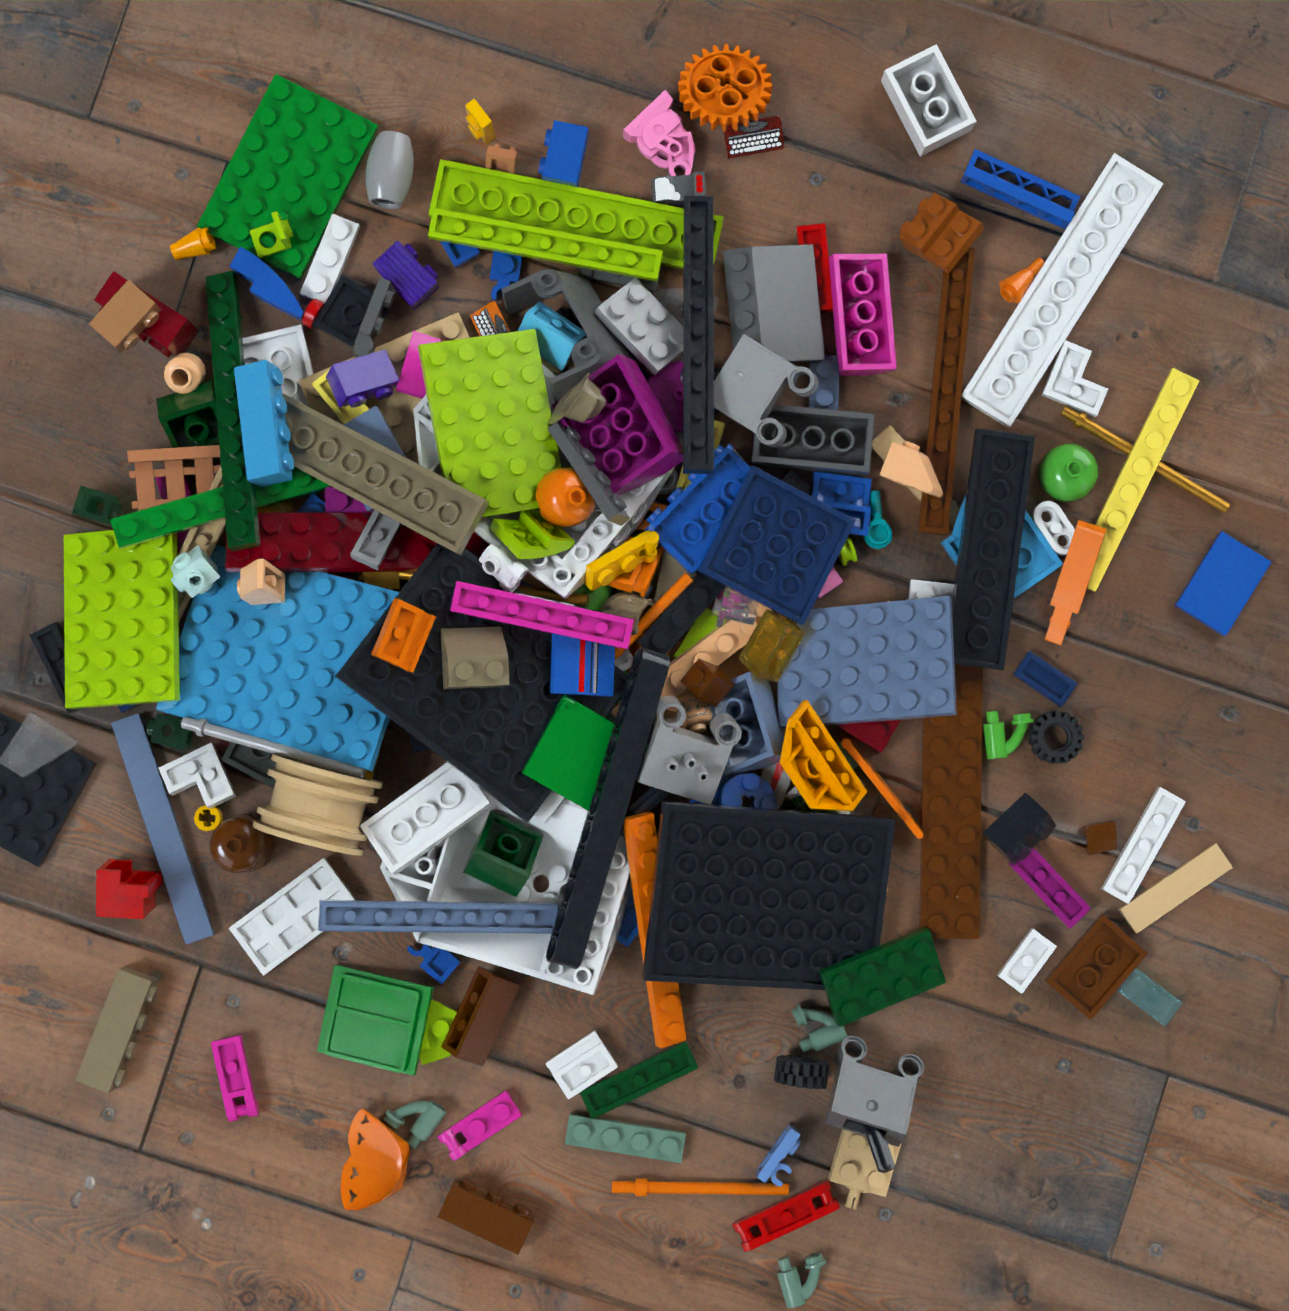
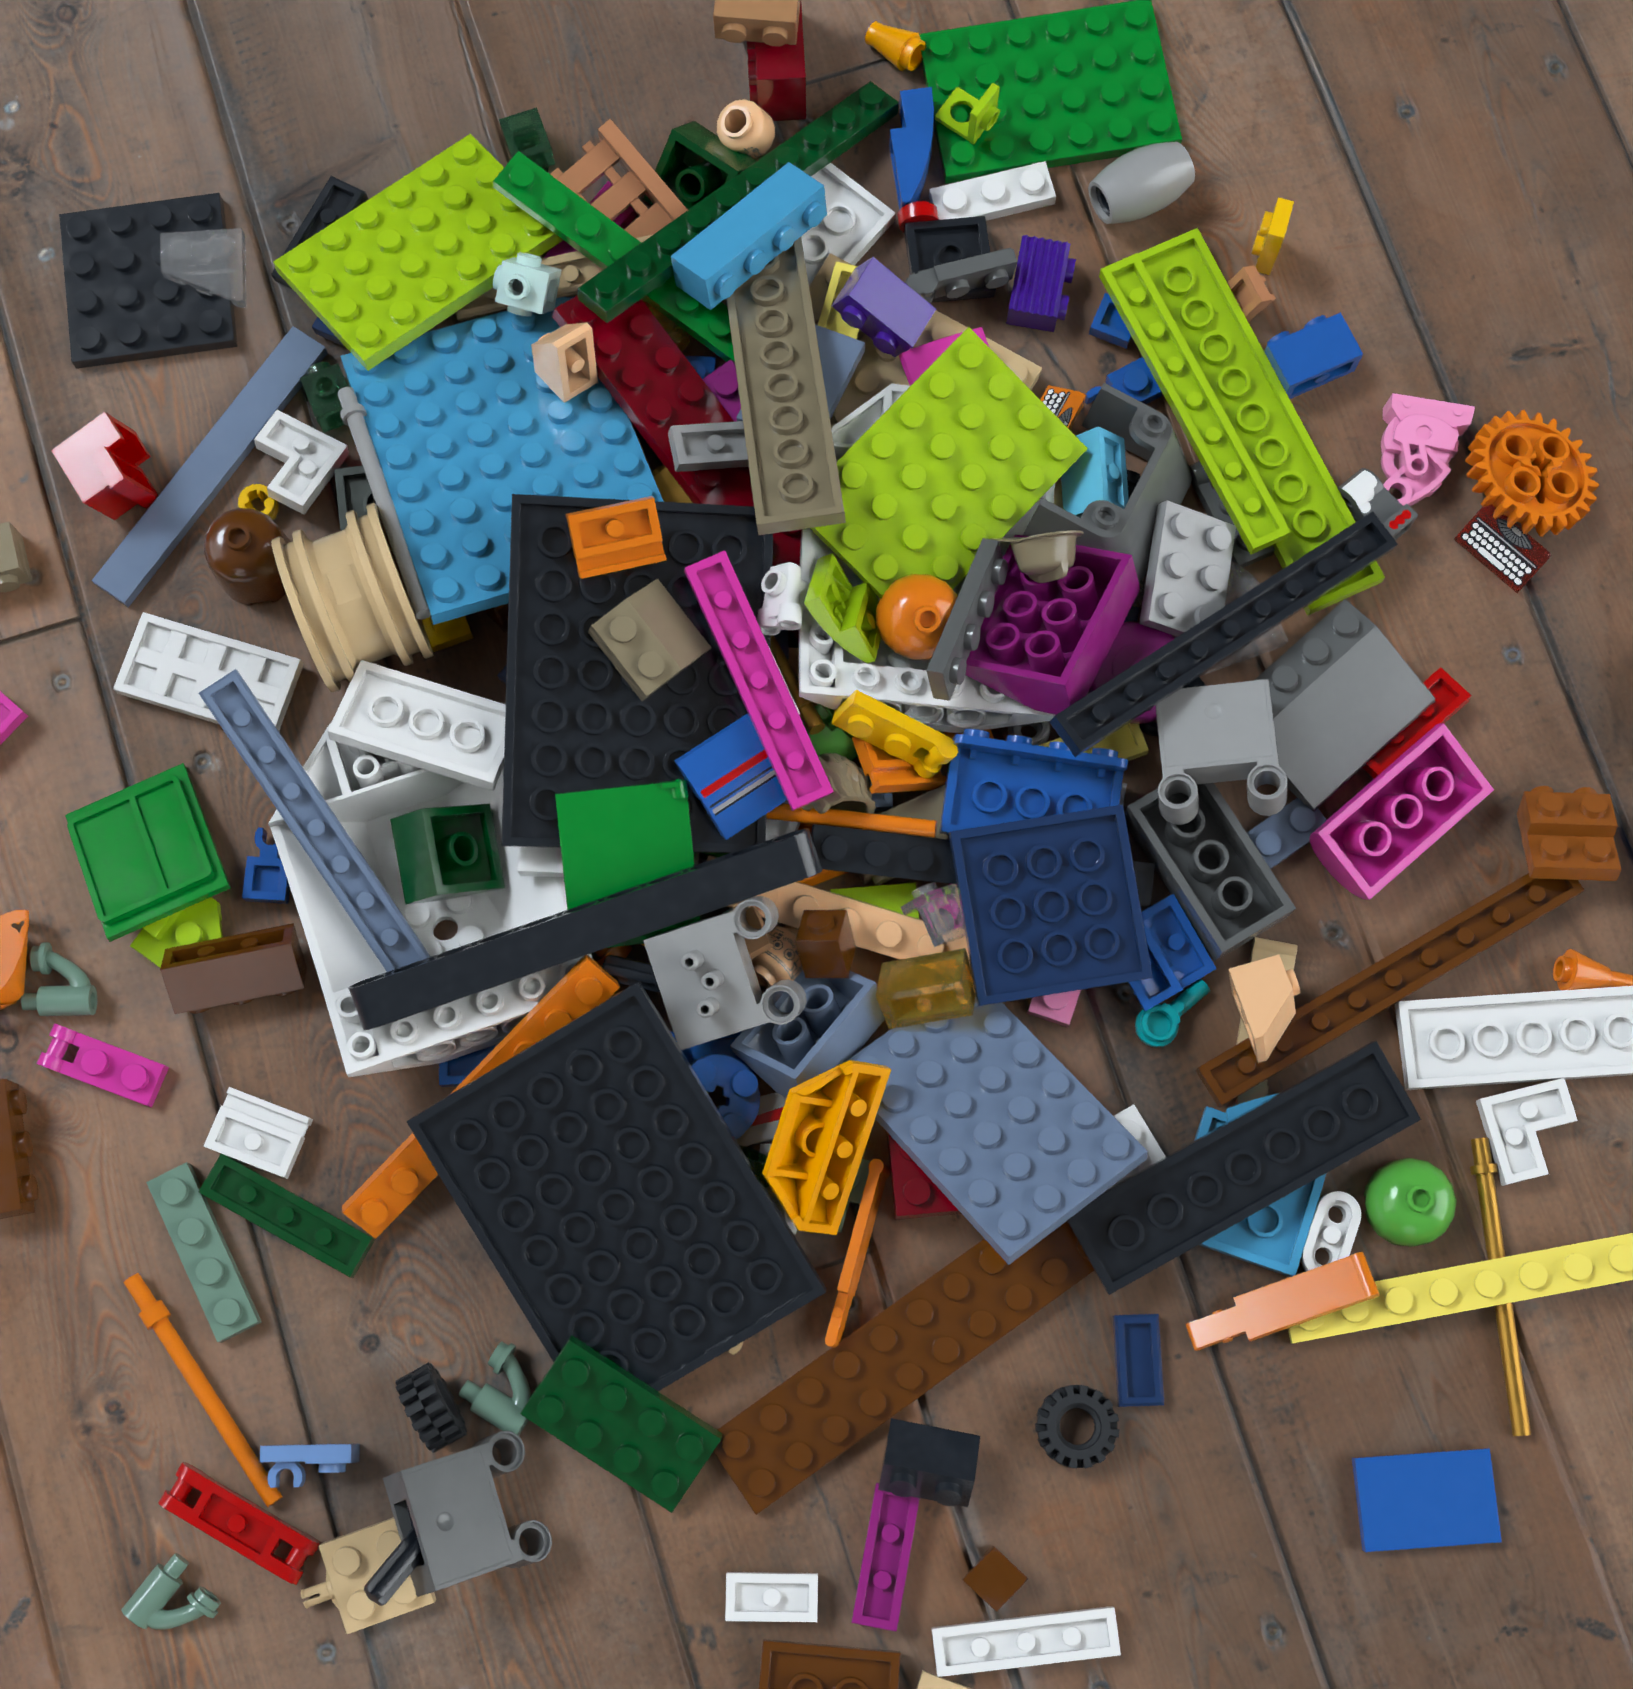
camera: 55 degrees right, 10 degrees down
(847, 552) = (1107, 1002): lime bush -> none
(995, 734) = (1021, 1348): bright green plant -> none

